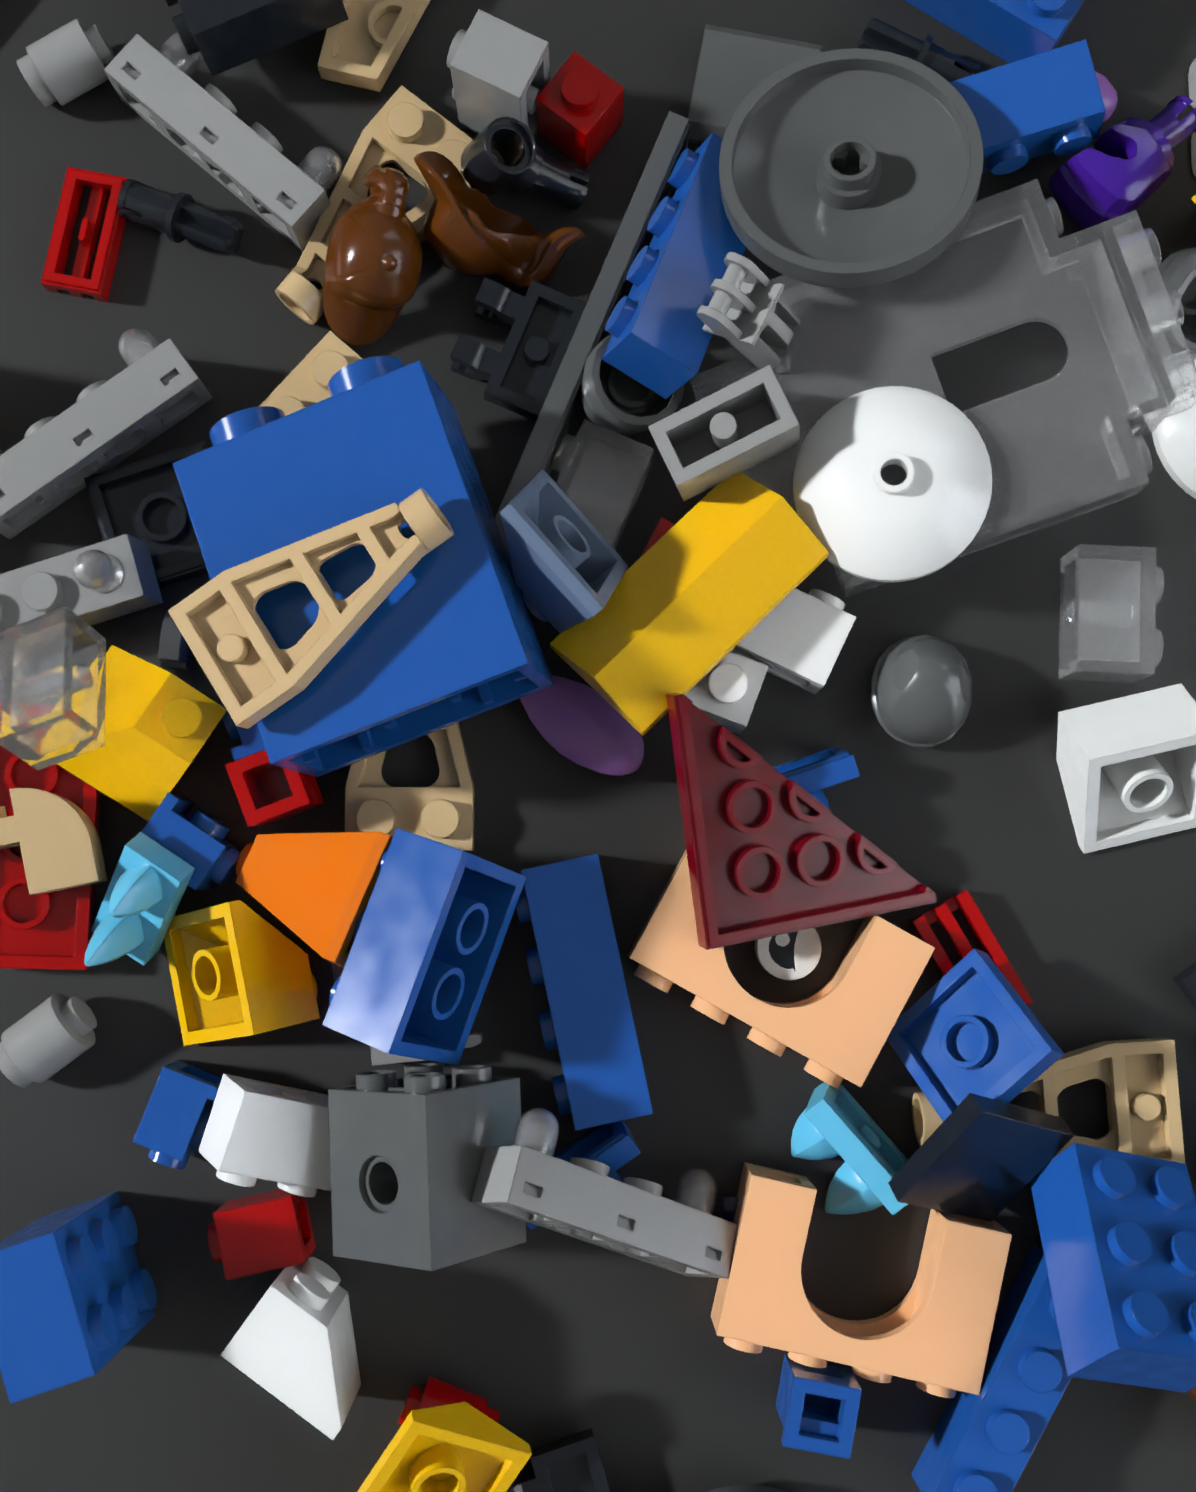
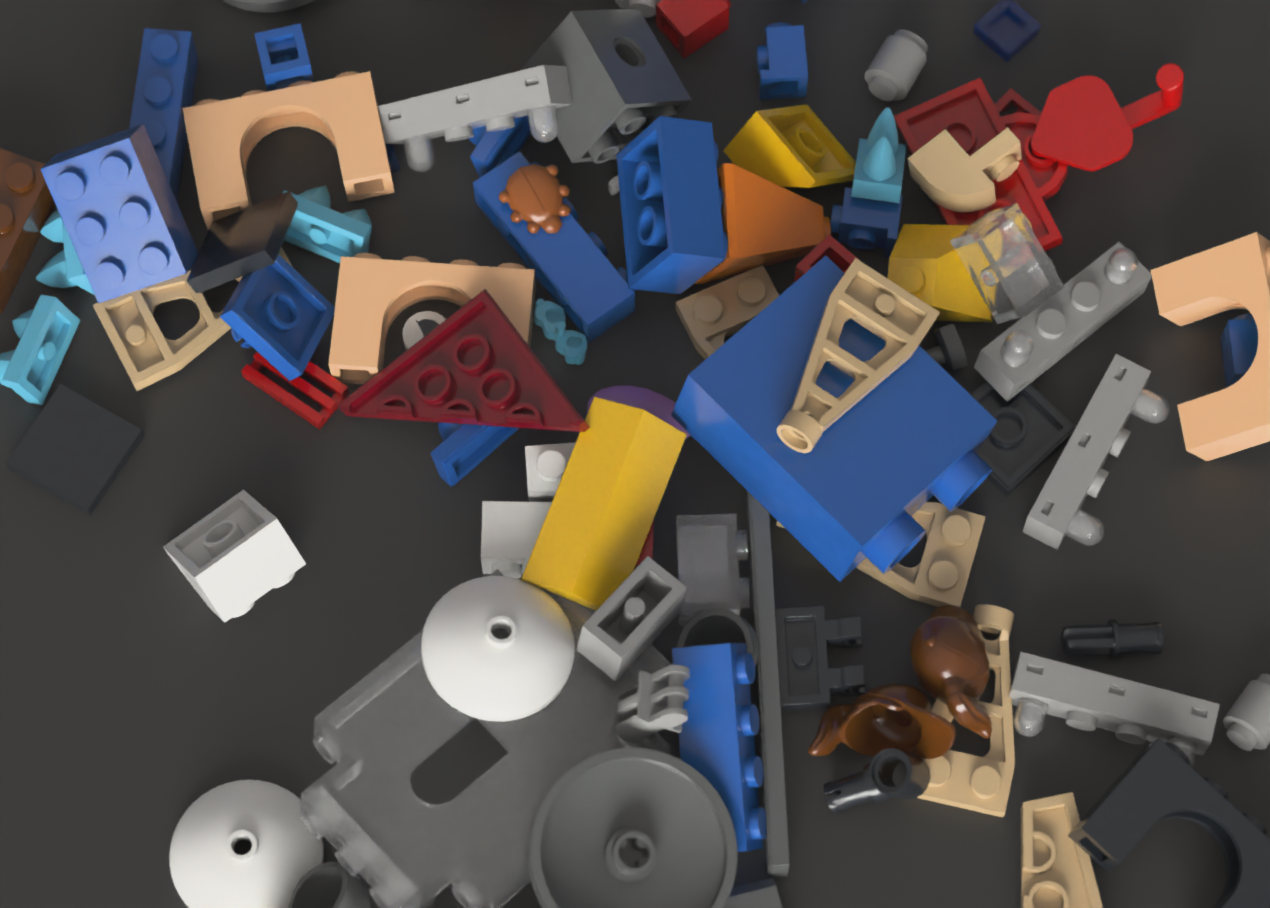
camera: 160 degrees right, 15 degrees down
(110, 240) = (1186, 642): red tile -> none
(269, 1136) = (717, 66): white brick -> none
(497, 73) = (925, 825): light grey brick -> none
(558, 555) = (706, 490): sand blue slope -> none
(580, 110) = (859, 847): red brick -> none
(585, 1050) = (536, 198): none -> dark orange piece
(622, 862) = (552, 321): none -> medium azure piece
(921, 691) = (409, 547): dark grey hat -> none
(1109, 613) = (296, 654): clear brick -> none

